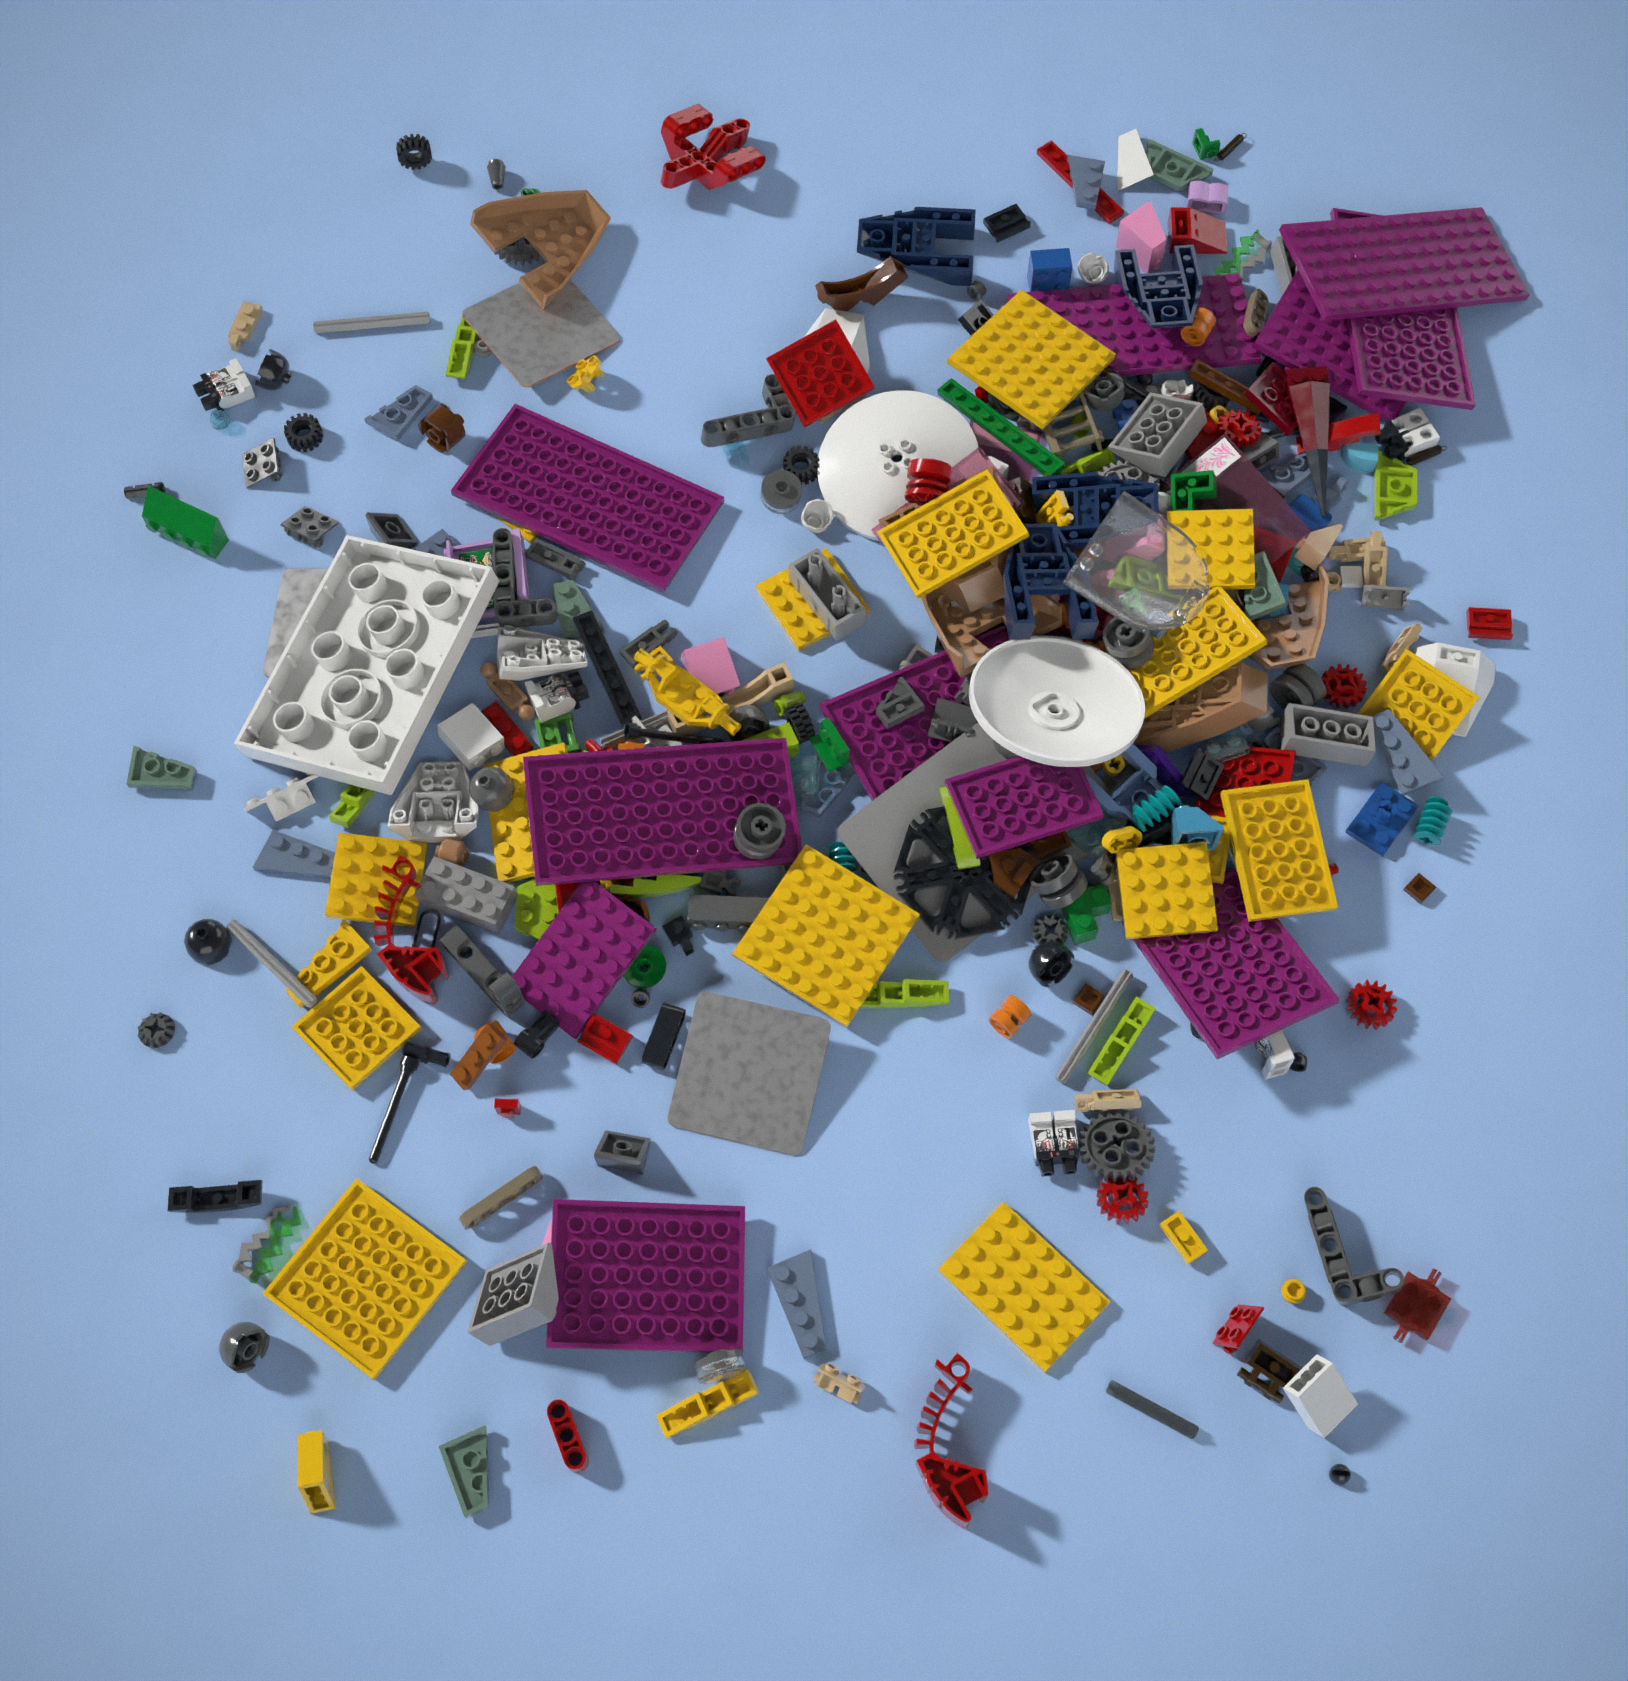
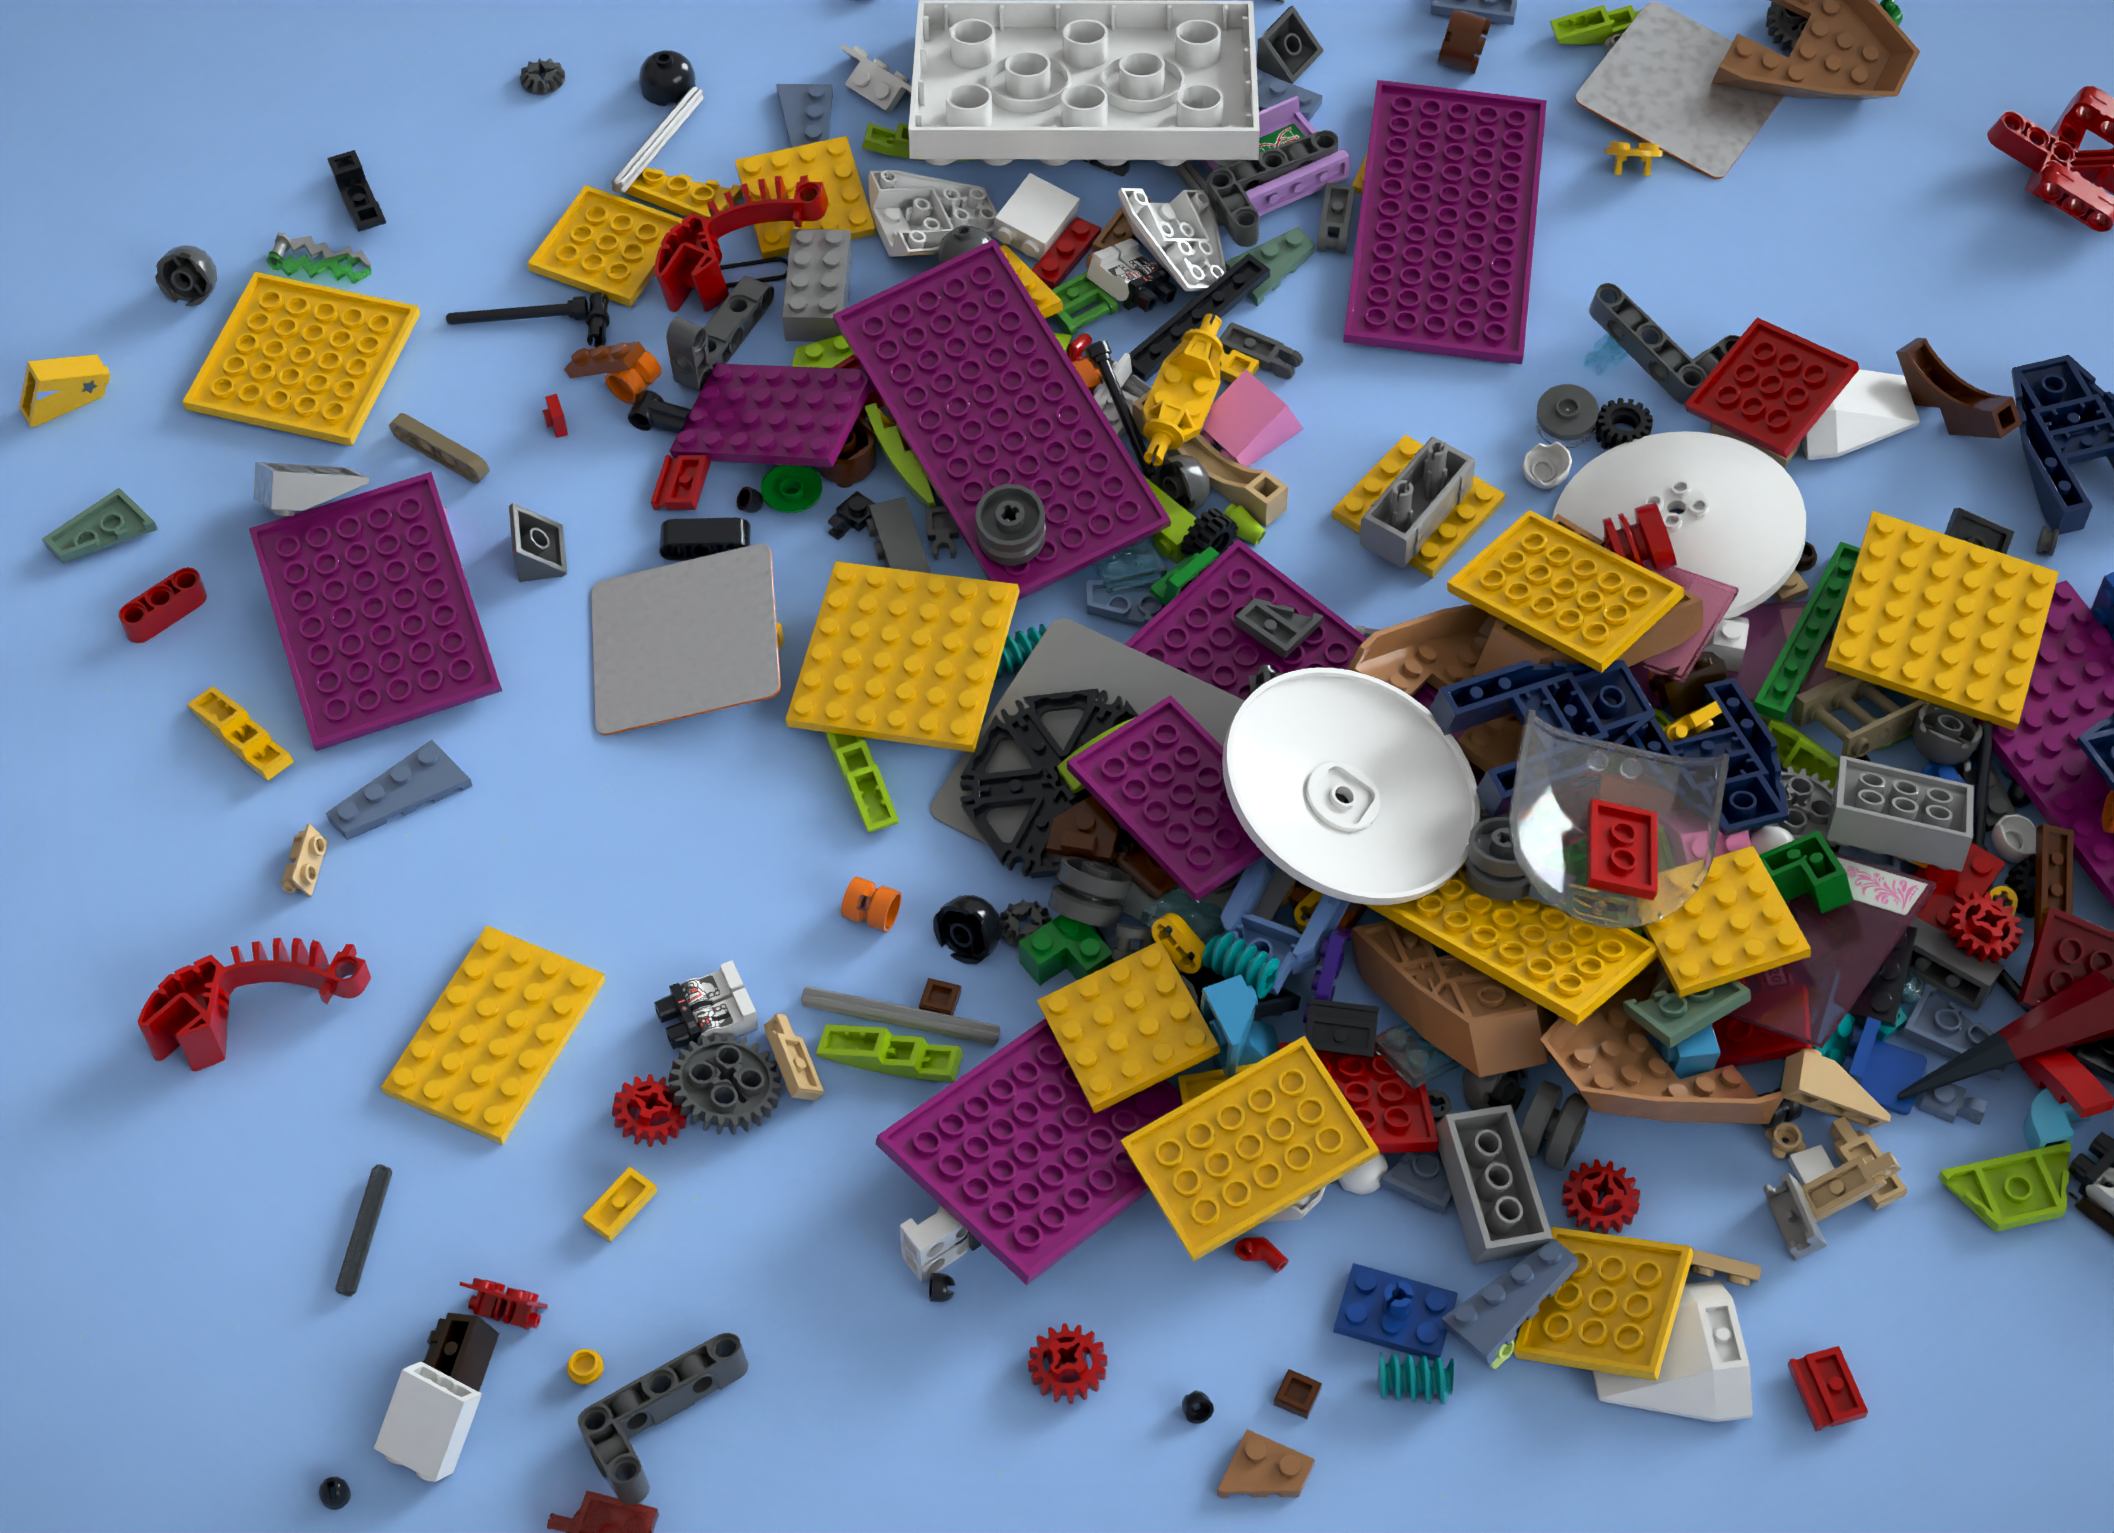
camera: 70 degrees right, 10 degrees down
(453, 852) = (867, 253): medium nougat head -> none
(720, 1366) = (284, 721): clear piece -> none
(1157, 574) = (1622, 849): none -> red plate
(1417, 944) = (1200, 1415): none -> black hinge
(1463, 922) = (1265, 1469): none -> medium nougat wing

